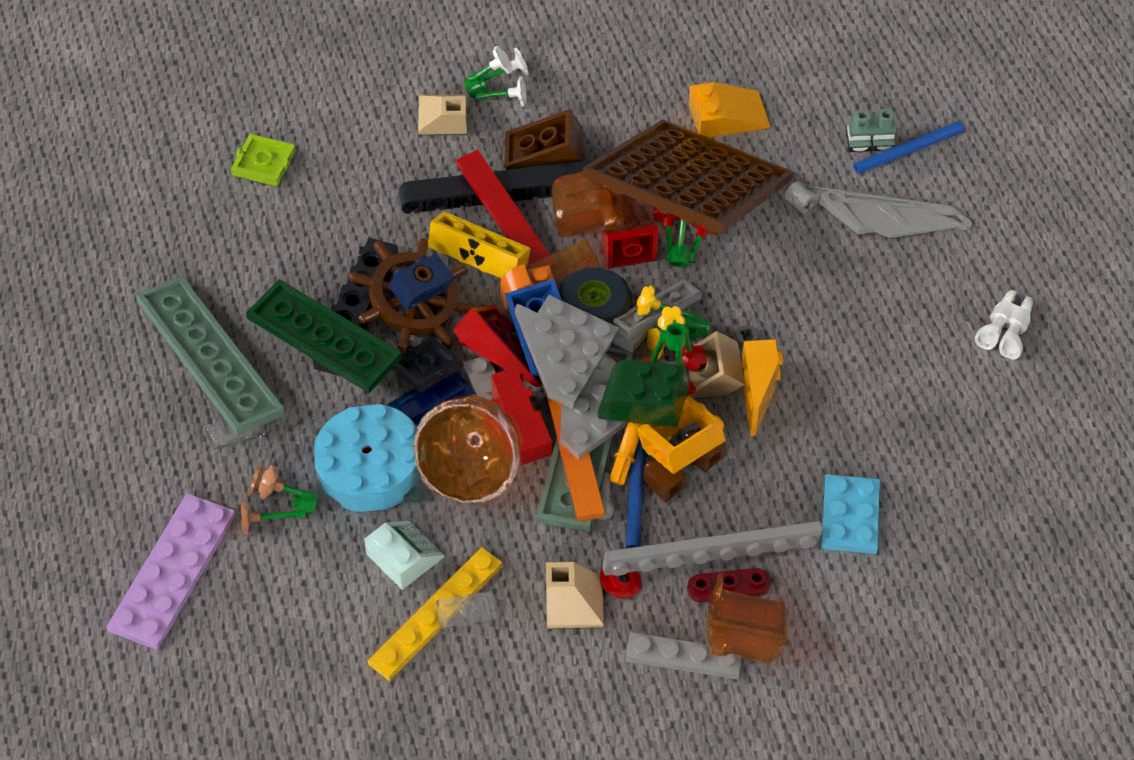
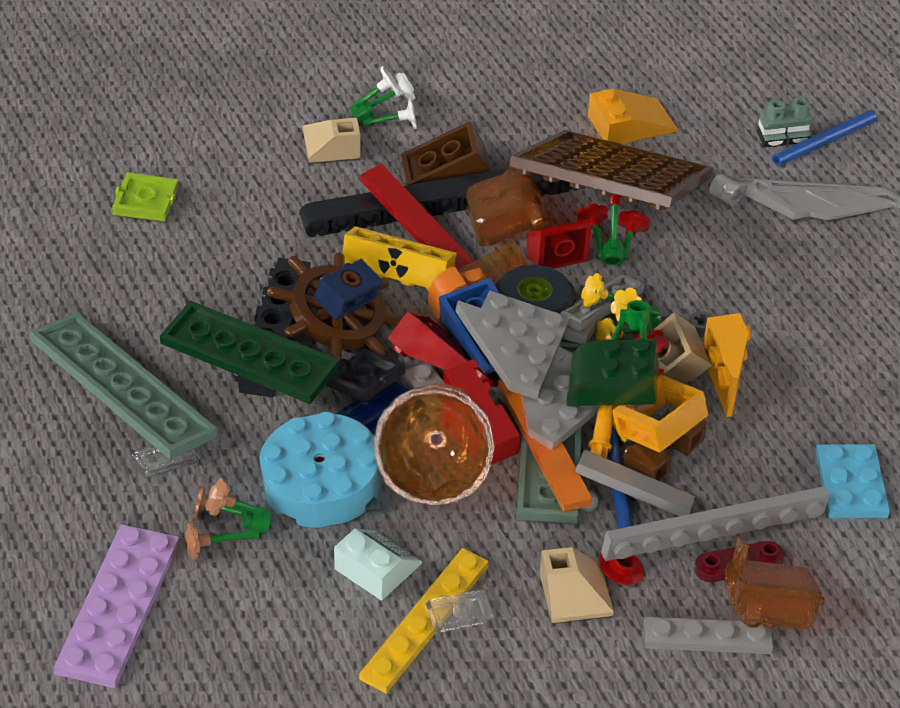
camera: 10 degrees left, 10 degrees down
(647, 500) = (634, 484): none -> light grey tile

